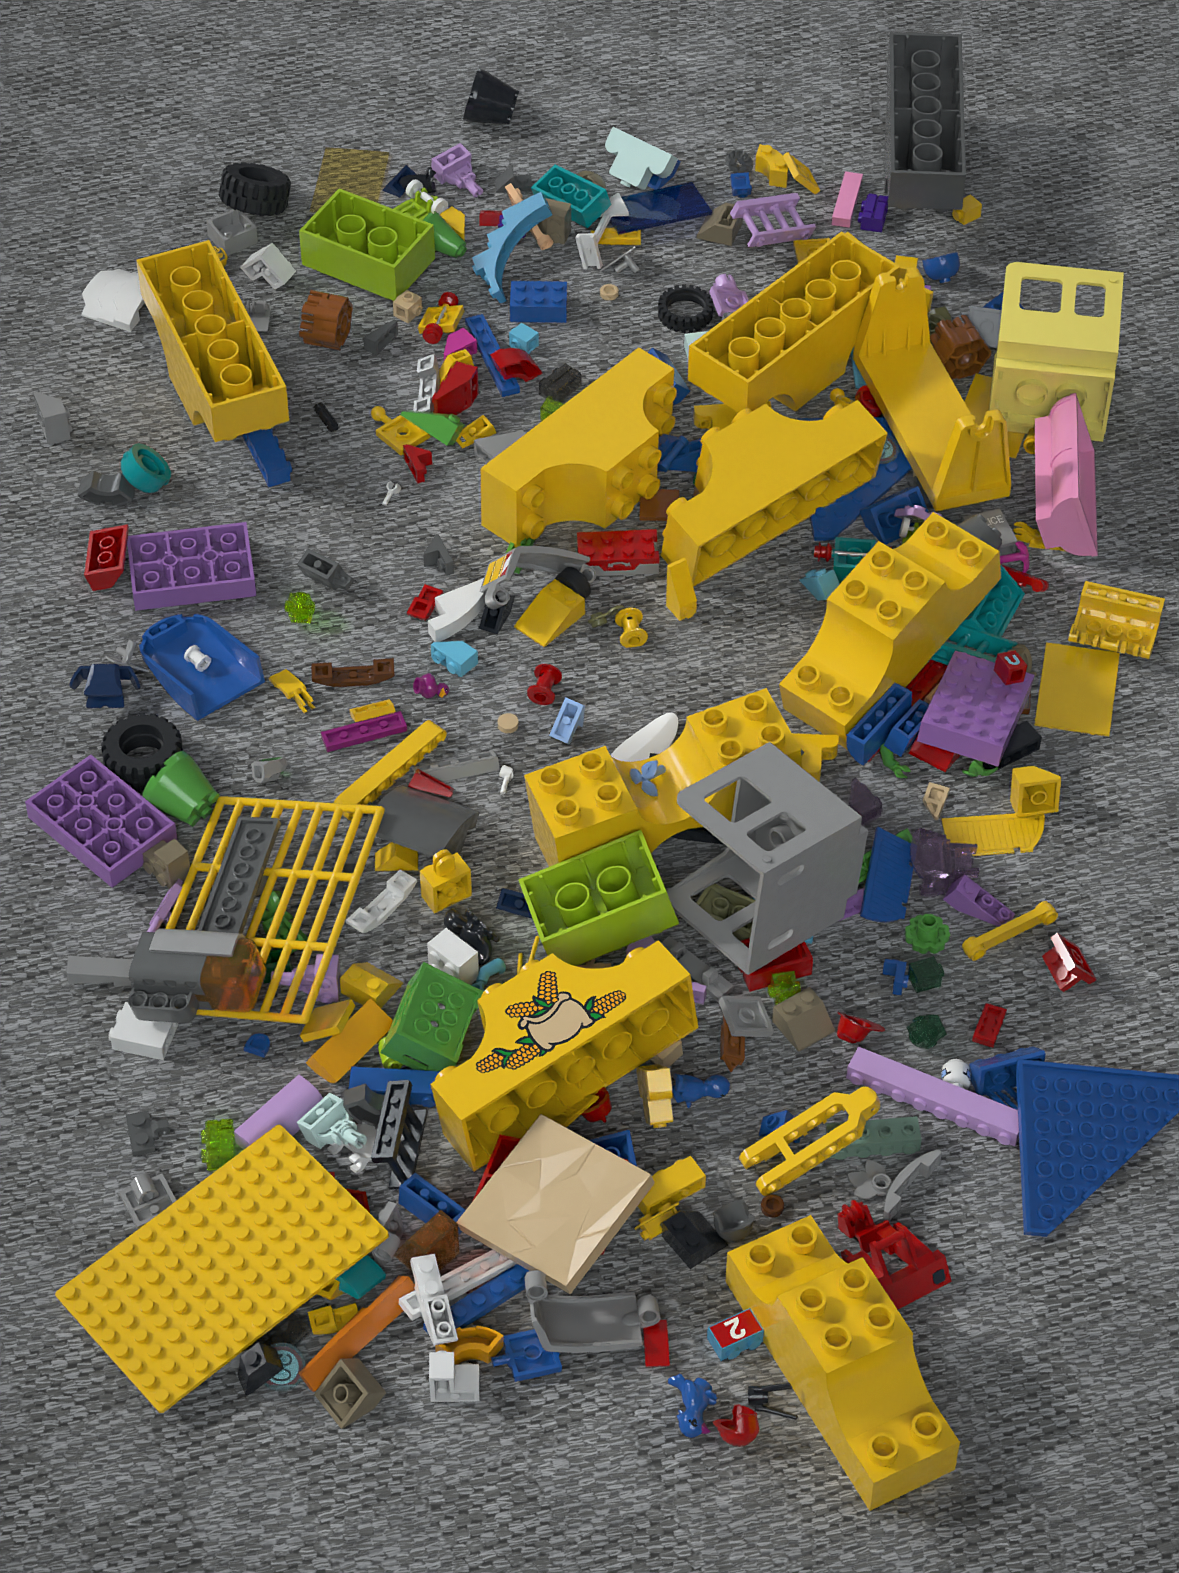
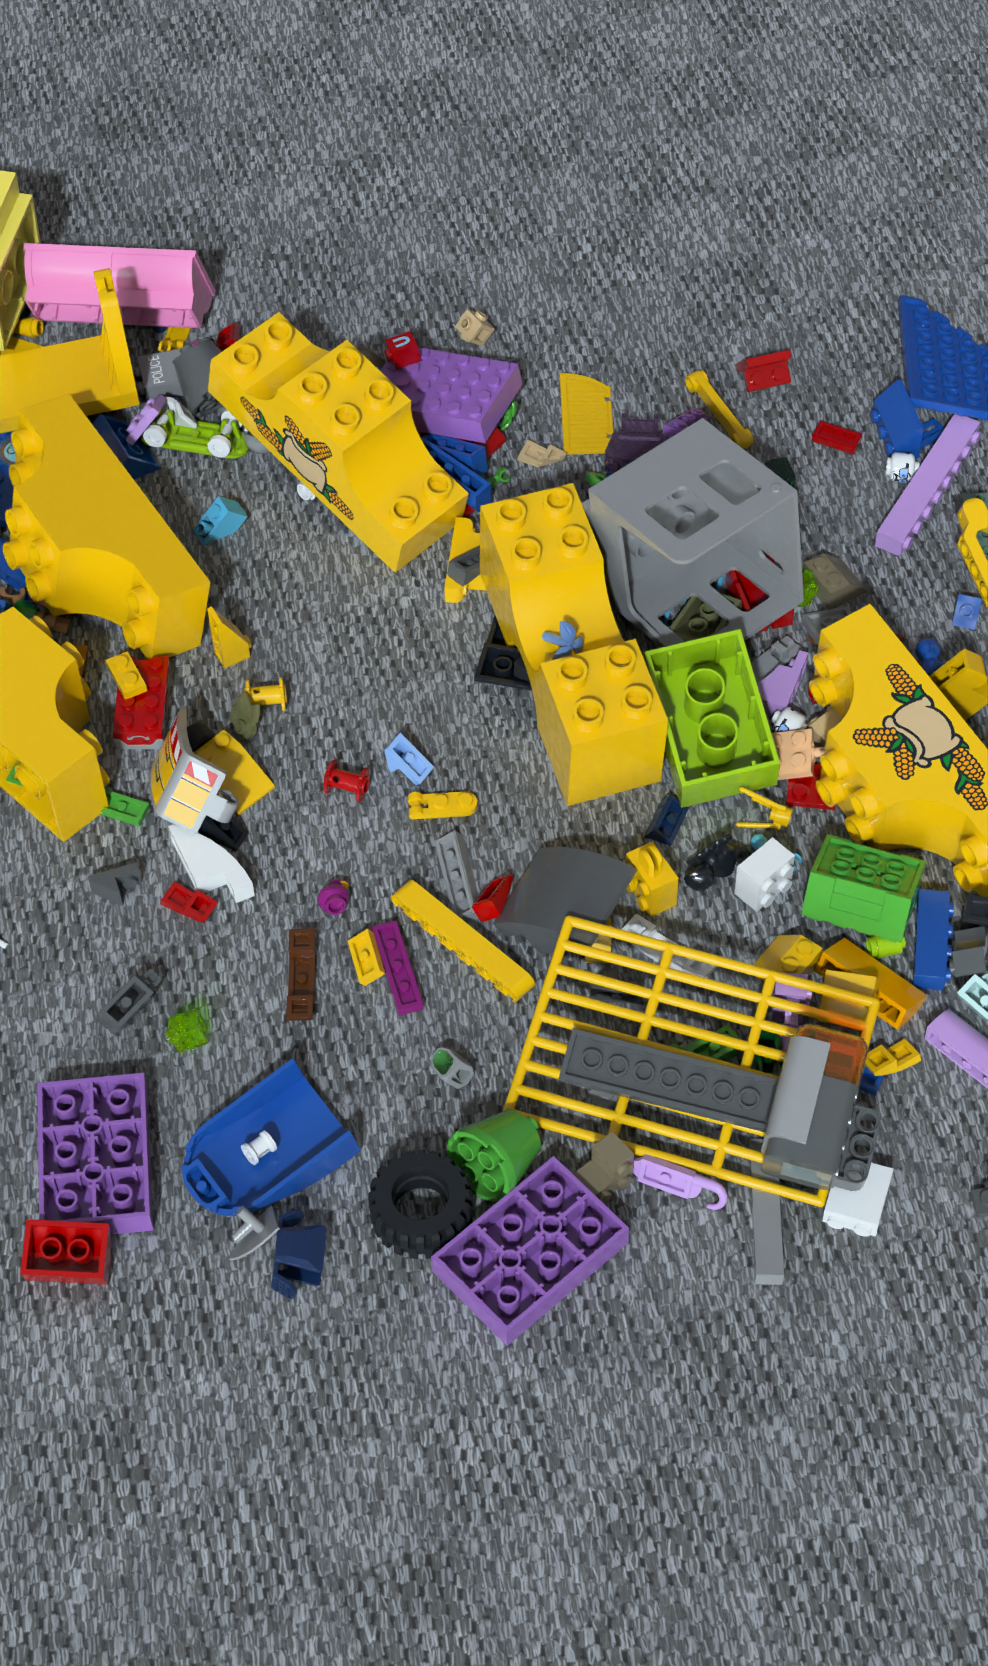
camera: 85 degrees left, 5 degrees up
(273, 1055) = (891, 1060): none -> yellow slope
(292, 687) = (319, 1043): yellow arm -> none
(455, 655) = (289, 868): medium azure slope -> none
(506, 773) = (475, 825): white hand -> none
(508, 723) = (395, 824): tan tile -> none
(528, 751) = (441, 805): none -> yellow plate
(630, 530) = (126, 675): none -> yellow plate
(650, 739) = (452, 704): white plant -> none
(846, 555) = (193, 482): teal brick -> none
(855, 1029) = (845, 534): red piece -> none
(926, 1031) = (850, 481): clear green brick -> none
(1034, 791) = (547, 368): yellow slope -> none
(1036, 569) = (228, 336): none -> red plate
(1077, 689) = (372, 321): yellow piece -> none
(1083, 739) = (474, 327): none -> tan brick
(1117, 620) = (314, 287): yellow slope -> none

